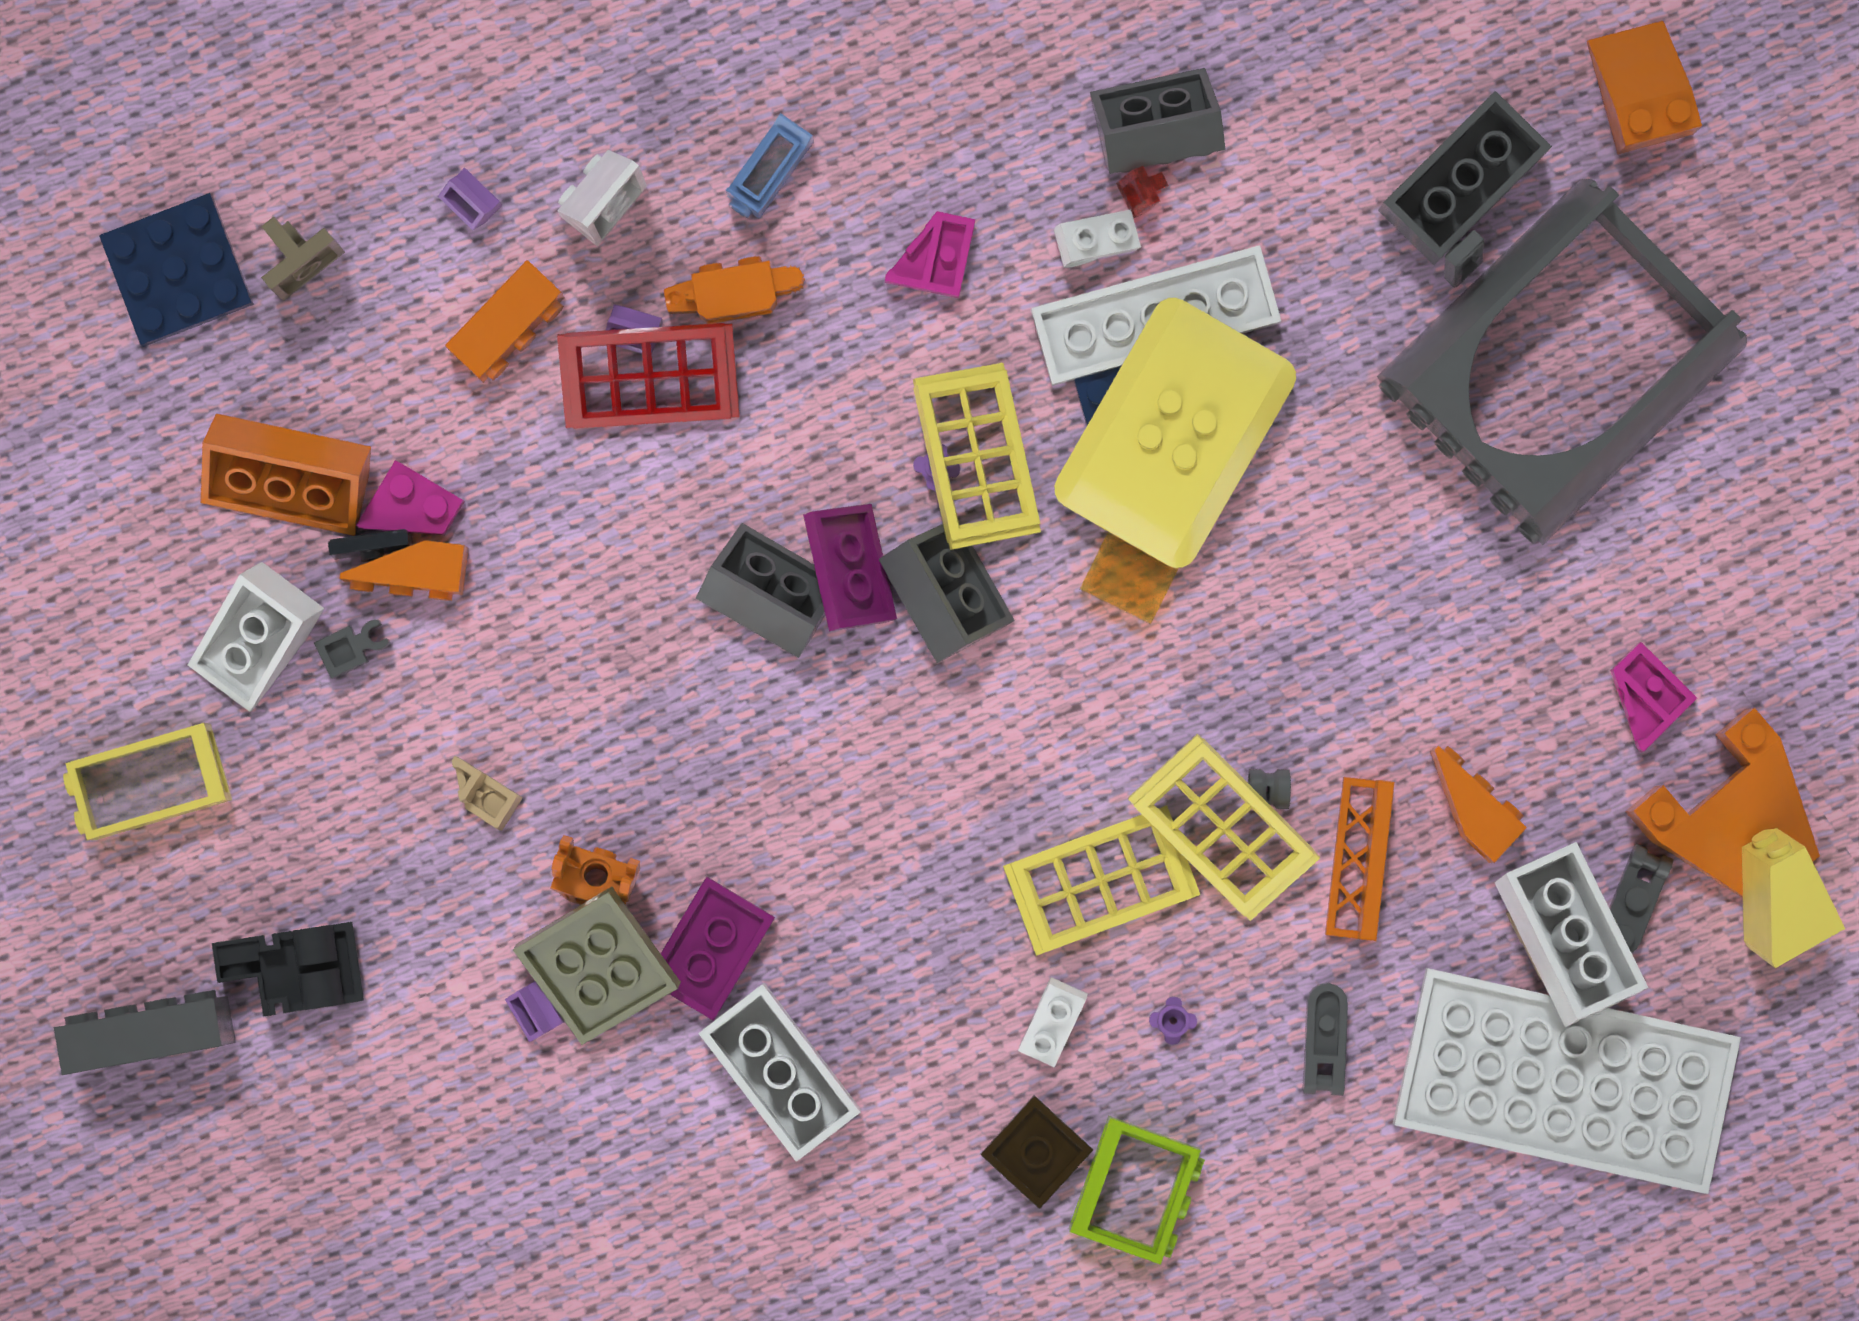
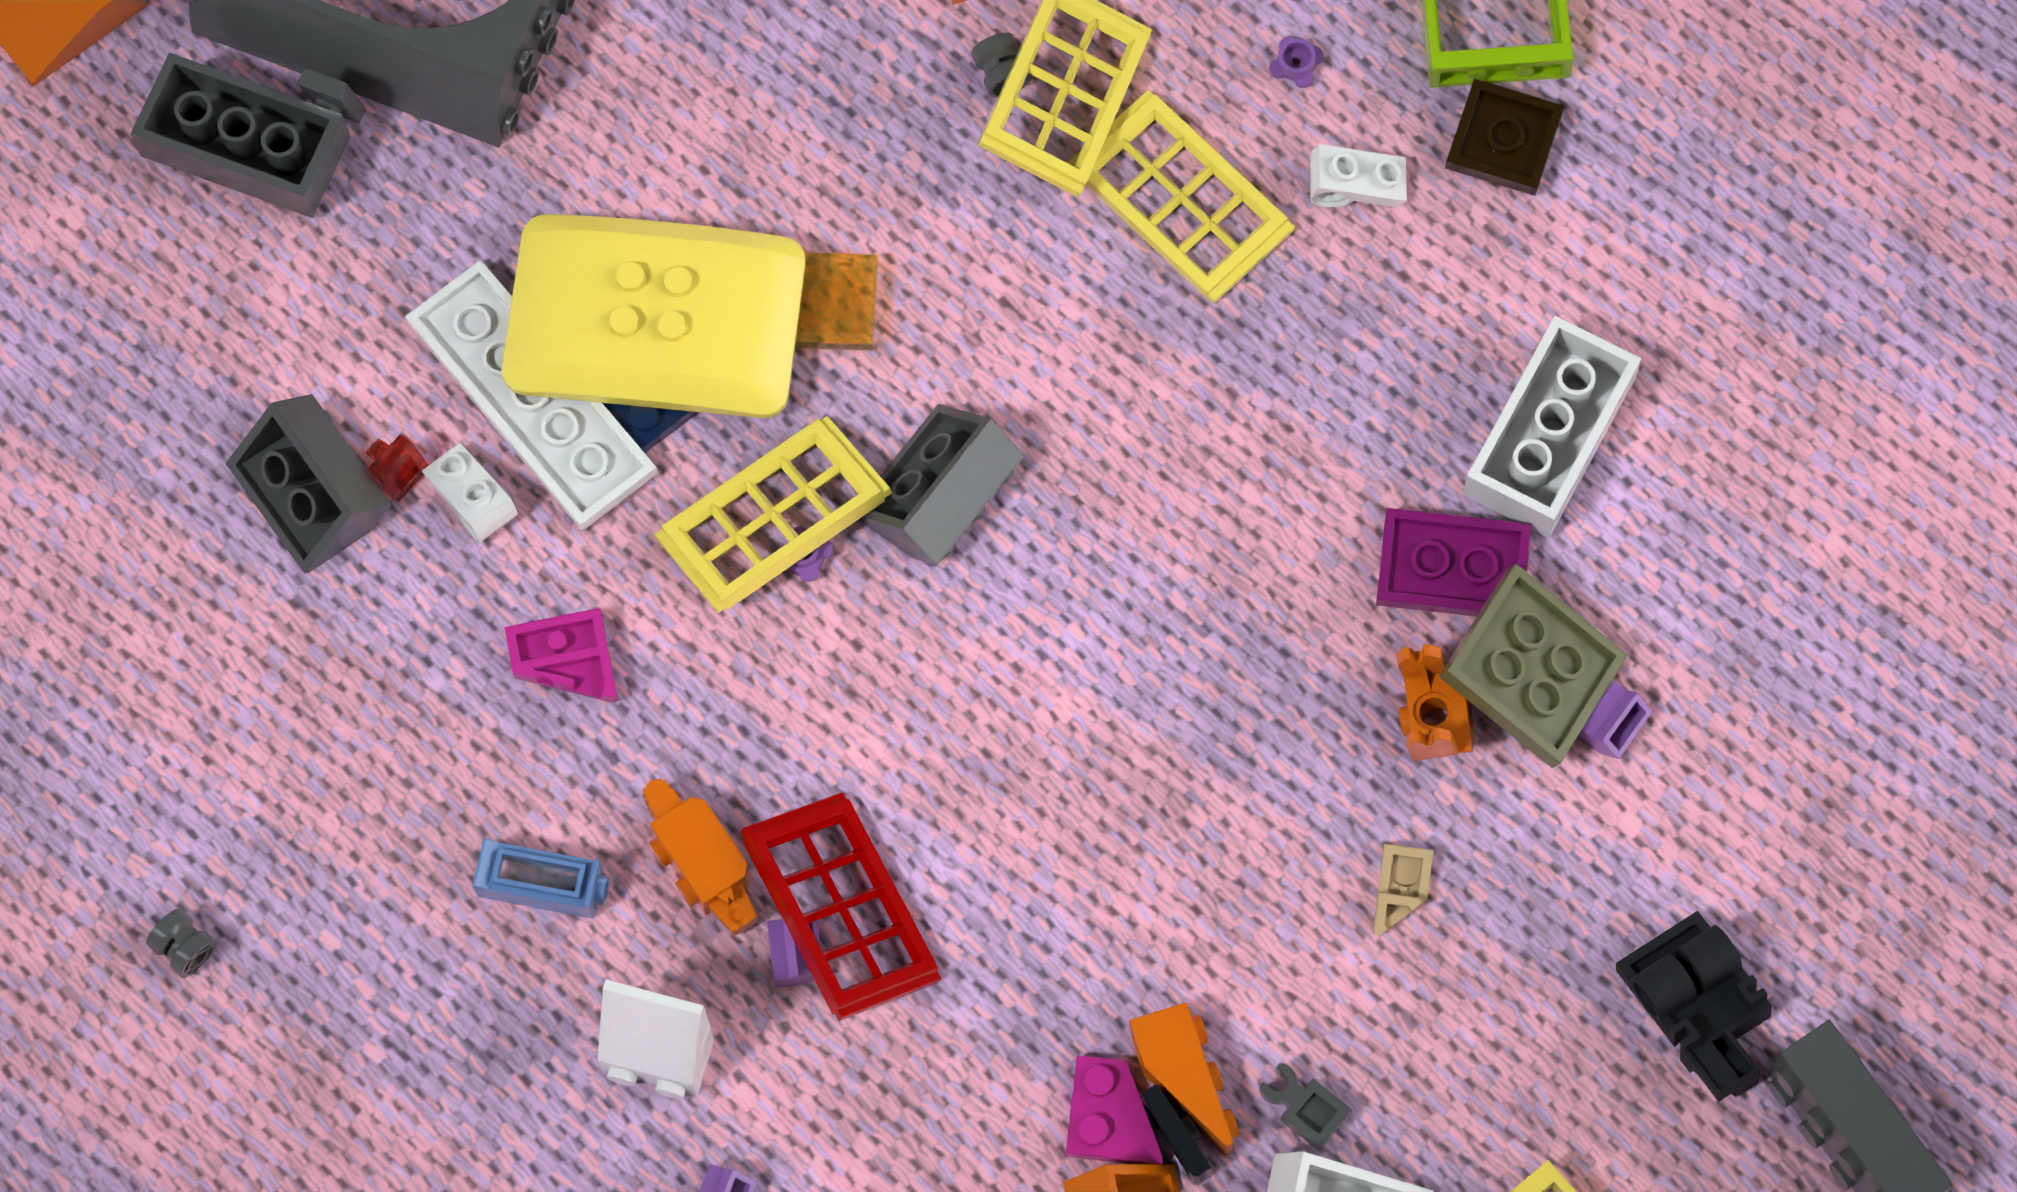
camera: 110 degrees left, 15 degrees down
(506, 322) = (849, 1094): orange brick -> none
(765, 590) = (1025, 669): dark grey slope -> none
(848, 568) = (960, 590): magenta plate -> none

